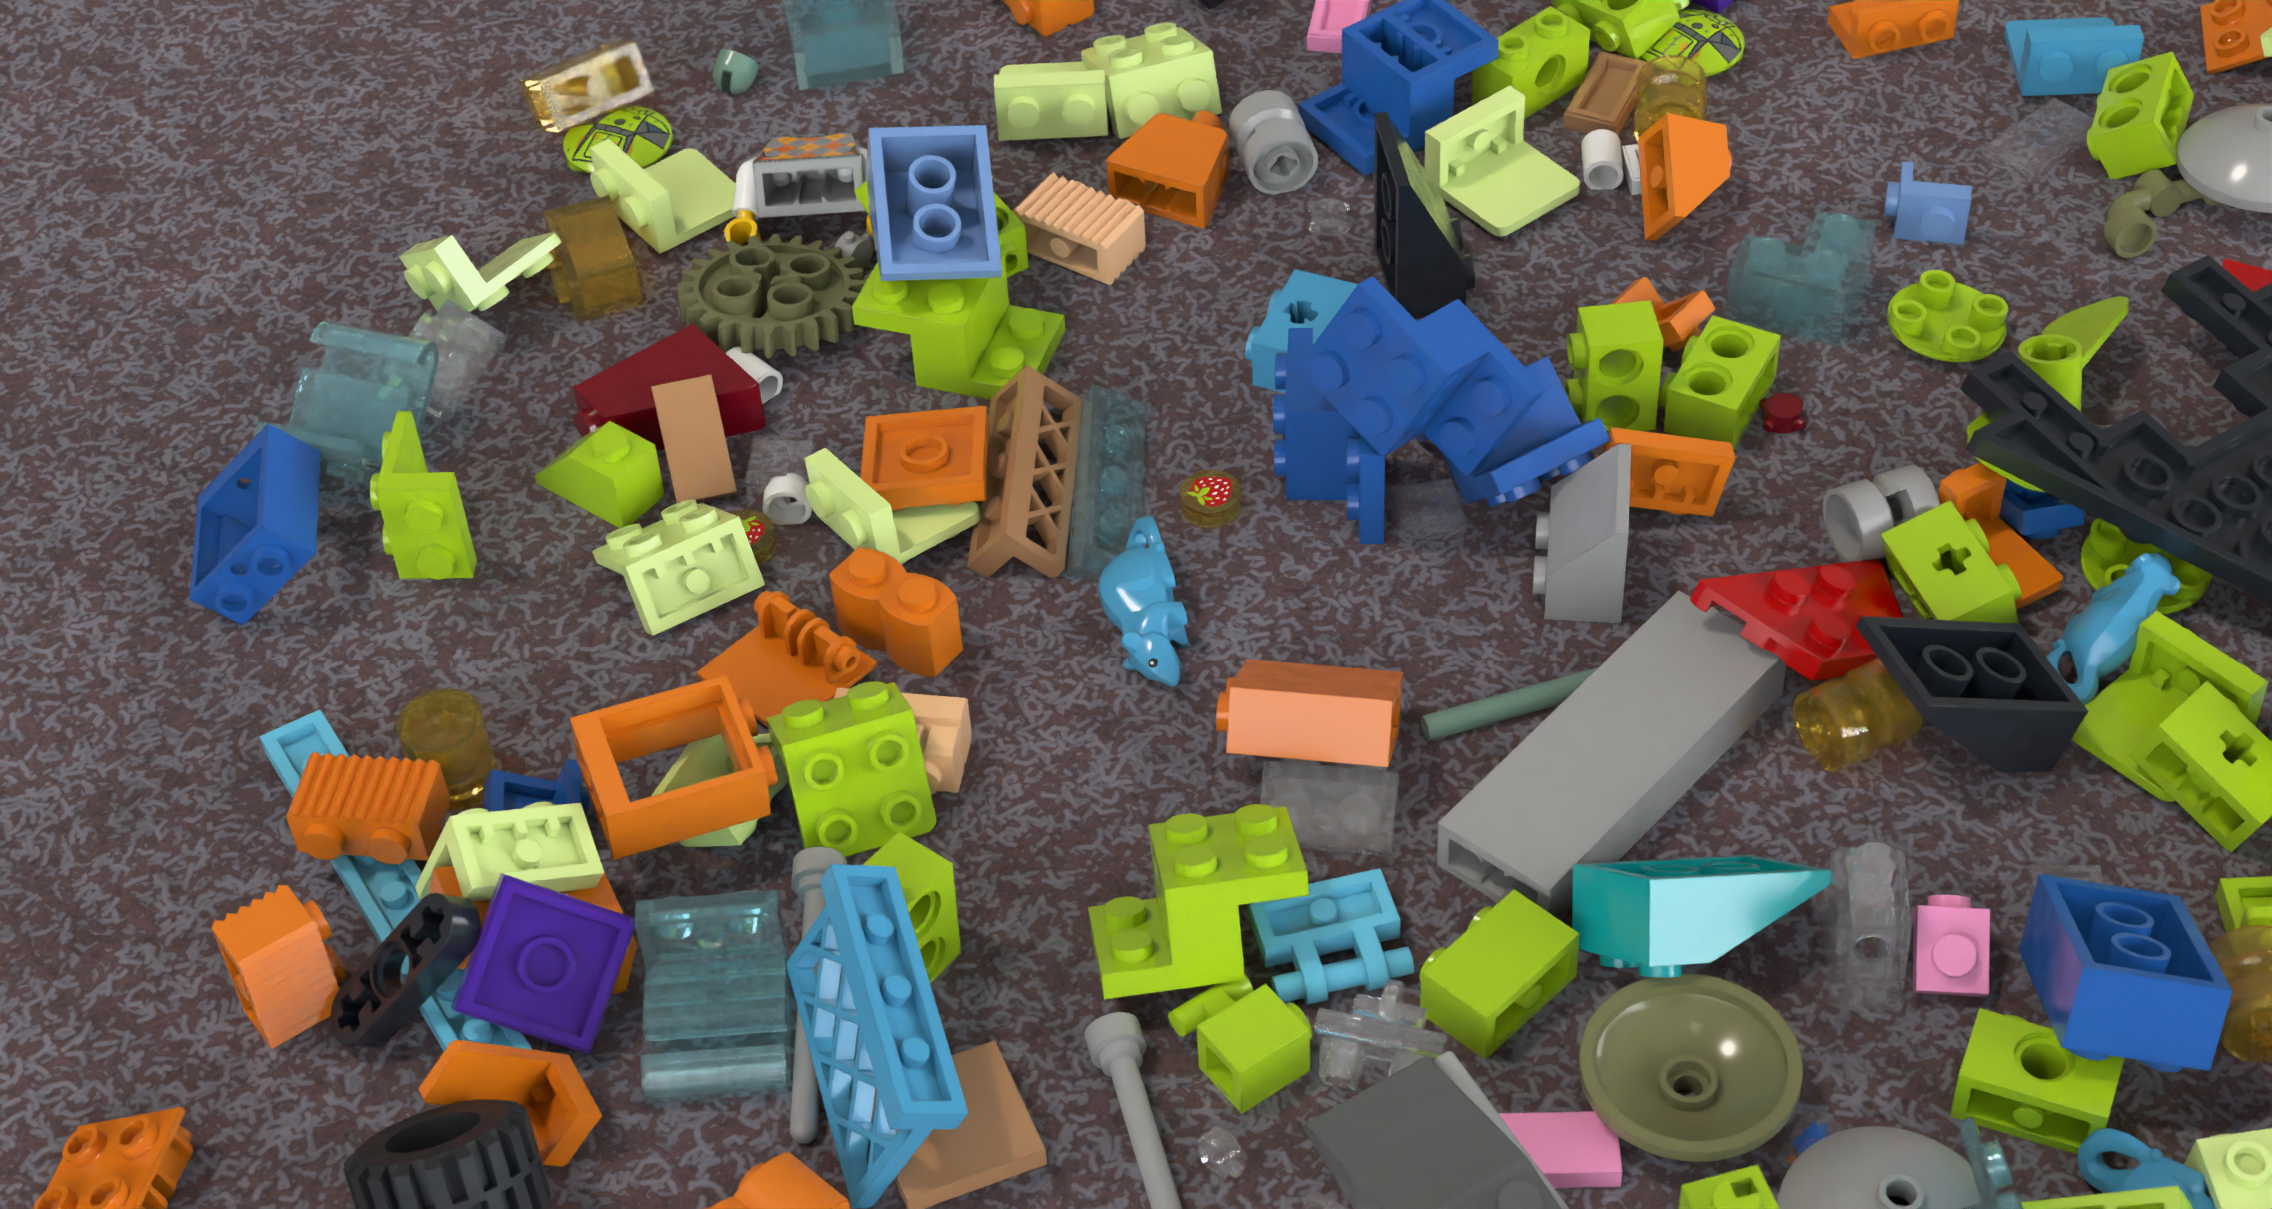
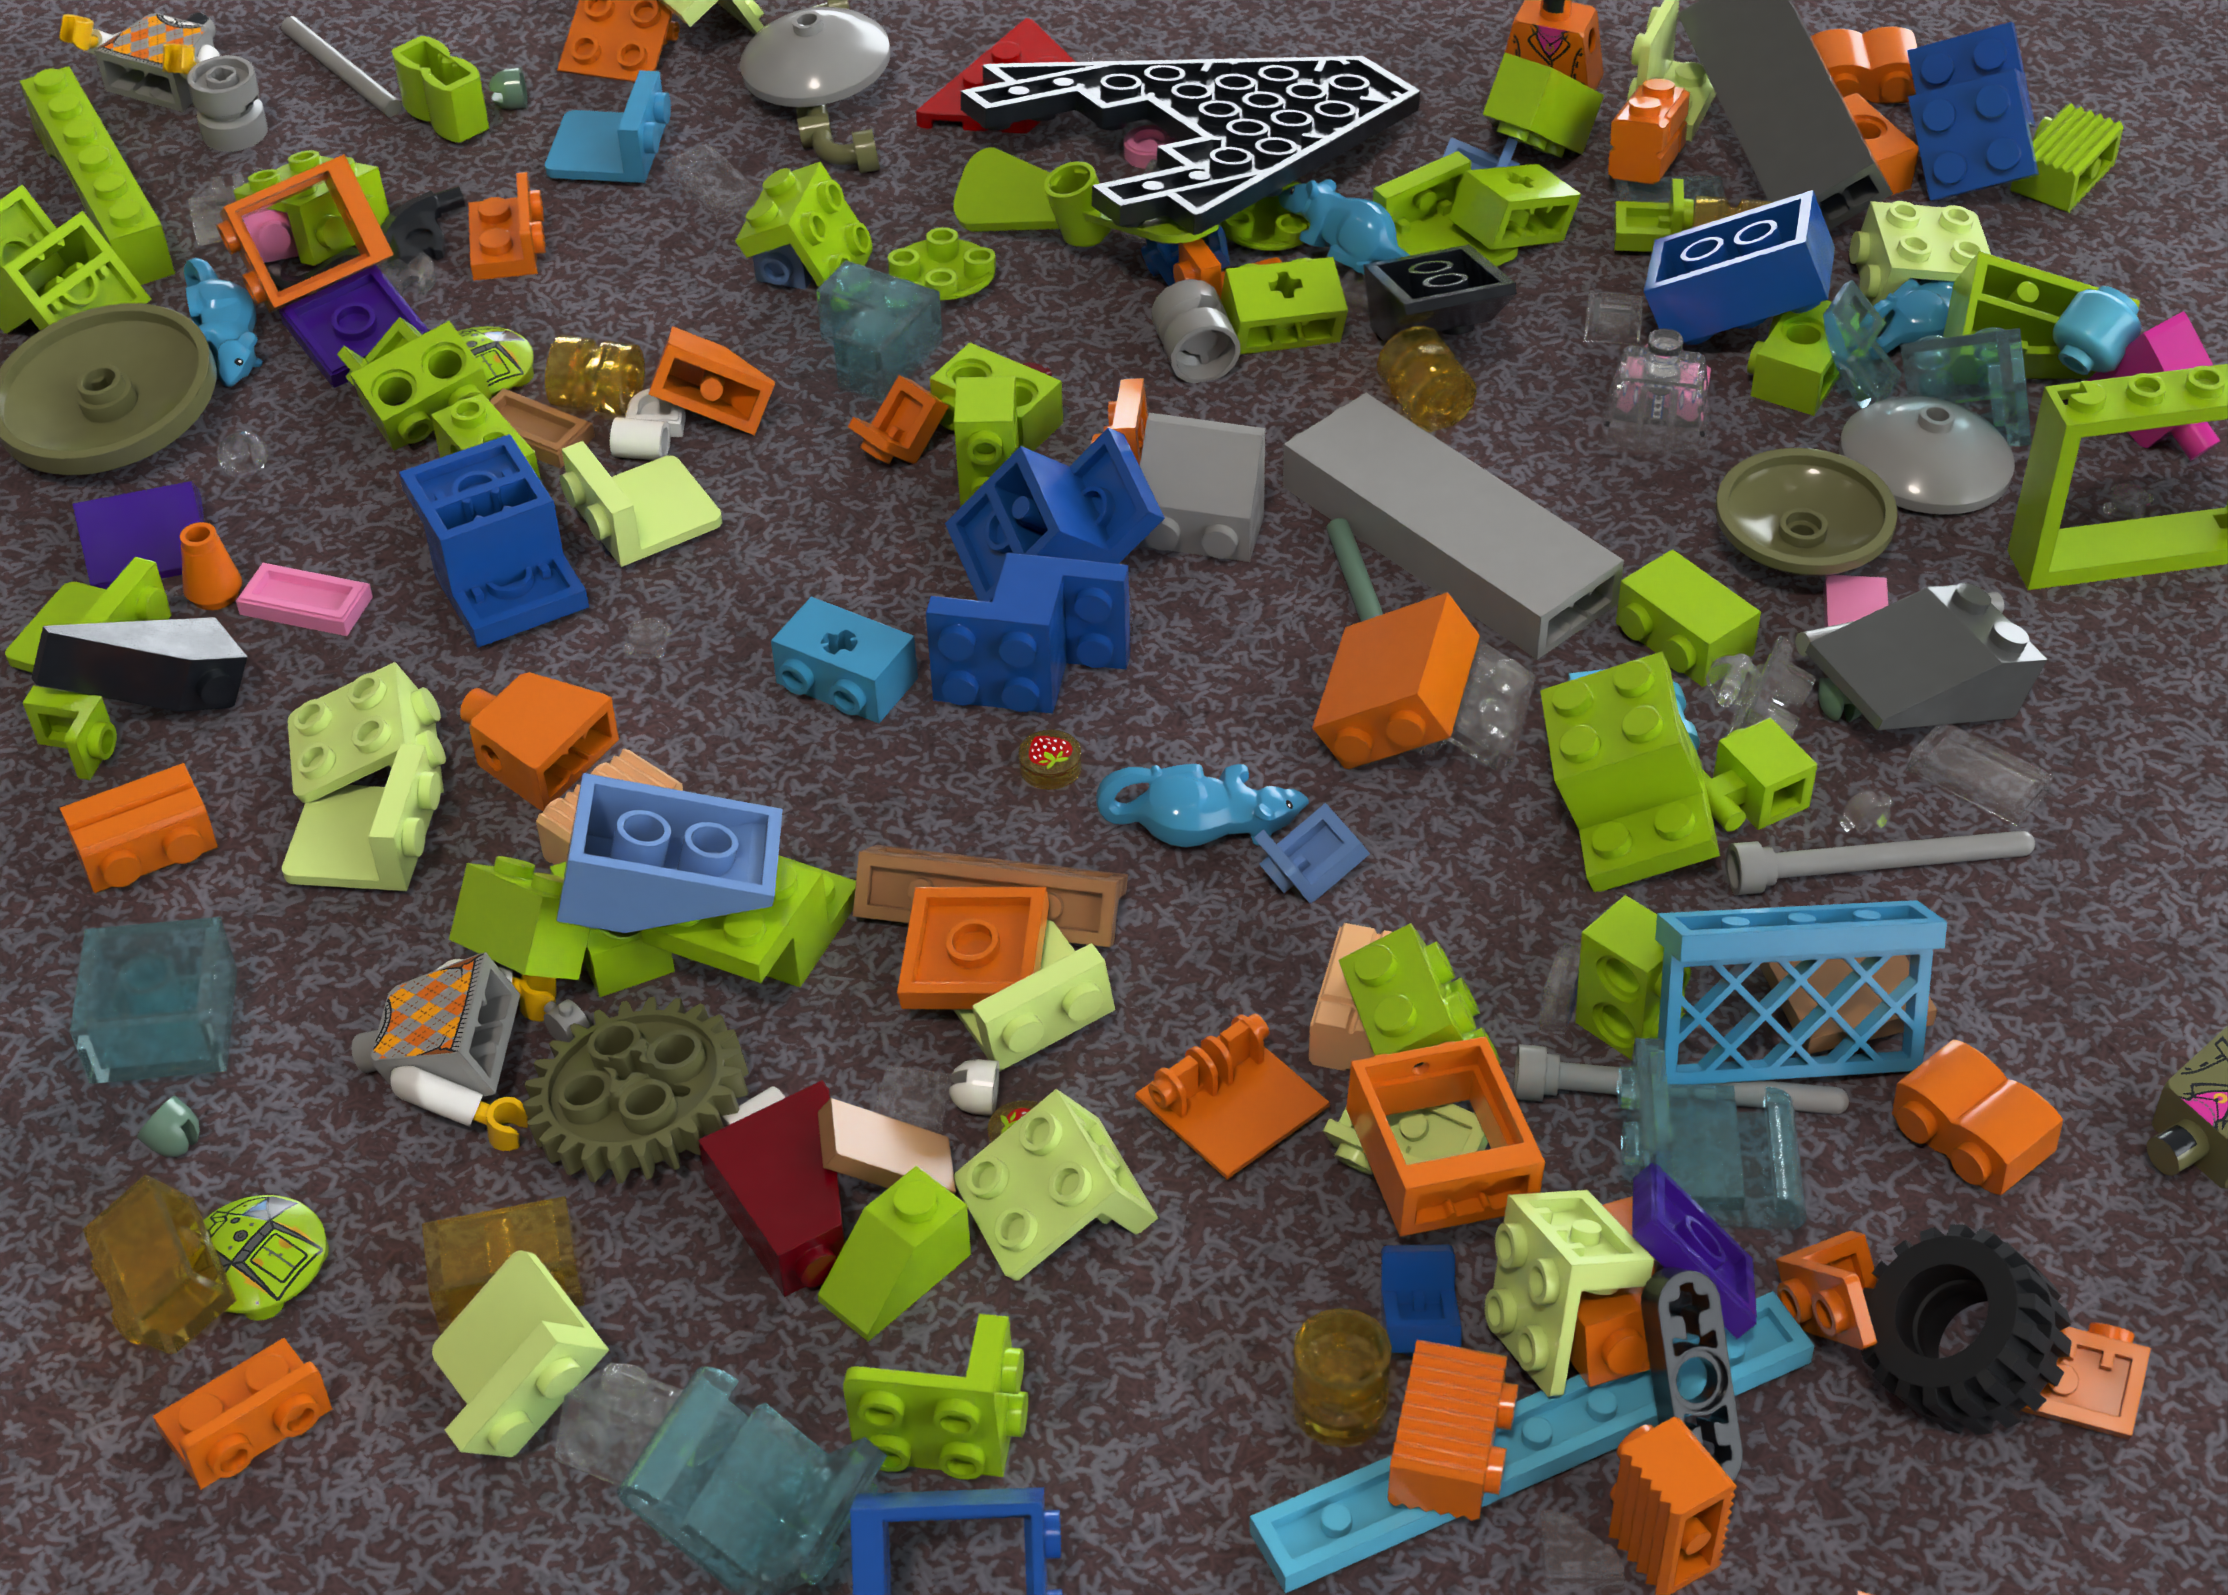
camera: 85 degrees left, 0 degrees up
(471, 166) = (244, 1413): none -> orange bracket
(667, 199) = (396, 1184): yellowish green bracket -> none
(896, 612) = (1188, 990): orange brick -> none
(1083, 685) = (1312, 854): none -> medium blue bracket
(1106, 481) = (1012, 835): clear light blue slope -> none
(1273, 142) = (512, 648): light grey wheel -> none
(1412, 230) = (748, 542): black slope -> none
(1420, 377) = (1079, 499): blue bracket -> none
(1683, 907) = (1644, 483): teal slope -> none
(1806, 612) = (1322, 373): red wing -> none
(1932, 203) = (809, 214): none -> lime bracket
(2033, 1110) = (1851, 334): none -> clear light blue slope
(2140, 116) = (735, 101): lime brick -> none

